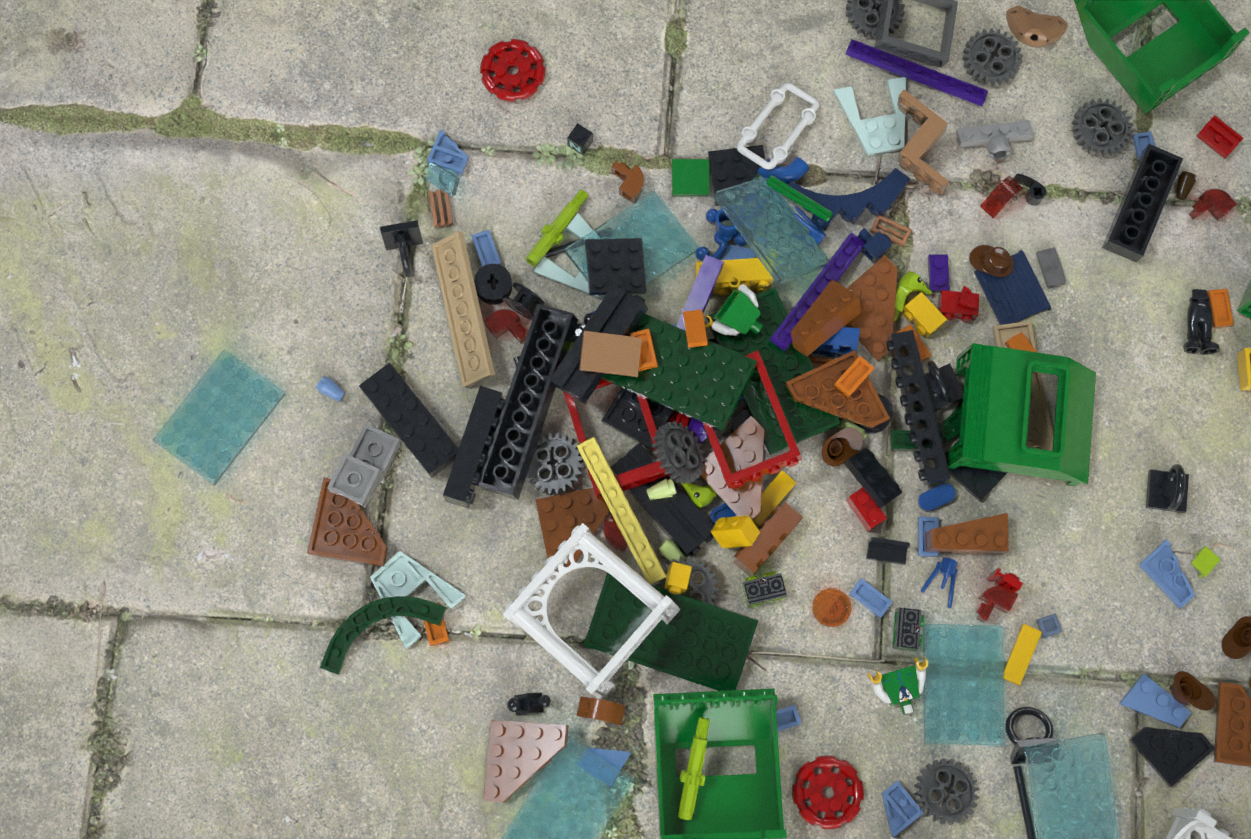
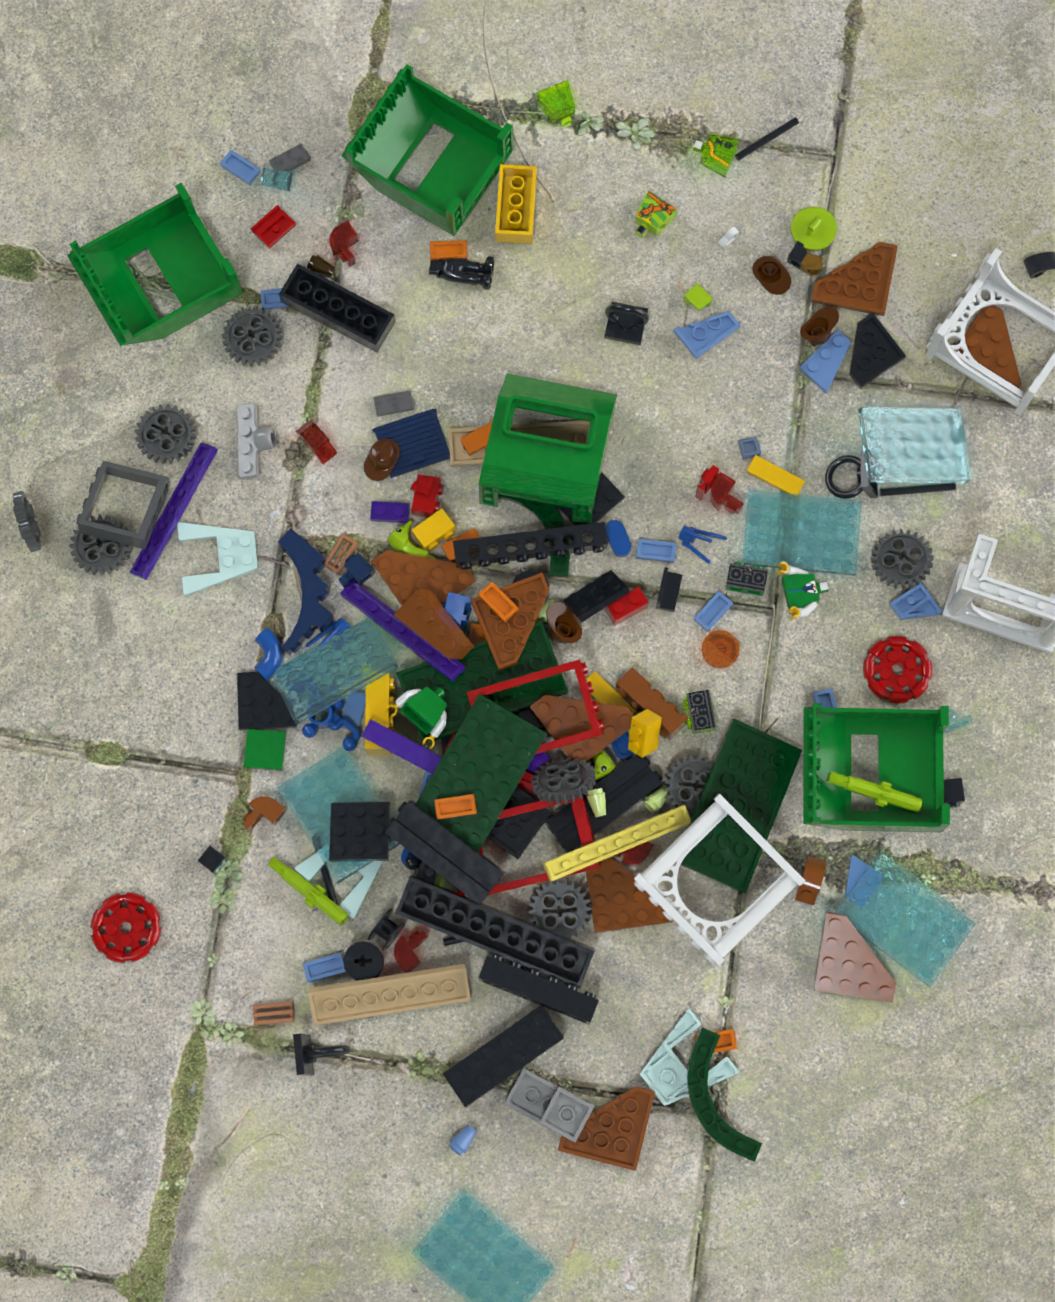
camera: 80 degrees left, 0 degrees up
(444, 179) = (243, 1007): clear light blue tile -> none
(447, 154) = (215, 1002): medium blue wing -> none
(528, 703) = (800, 951): black piece -> none
(610, 354) = (460, 839): medium nougat tile -> none
(677, 578) = (688, 792): yellow brick -> none
(695, 328) = (438, 753): orange tile -> none
(779, 153) = (226, 684): white bar -> none
(799, 198) = (302, 640): green axle -> none
(922, 142) = (254, 512): medium nougat bracket -> none
(942, 386) = (509, 519): black tile -> none
(976, 536) = (660, 504): dark orange wedge -> none
(1034, 24) = (135, 389): medium nougat piece -> none
(1035, 187) = (309, 409): black panel -> none

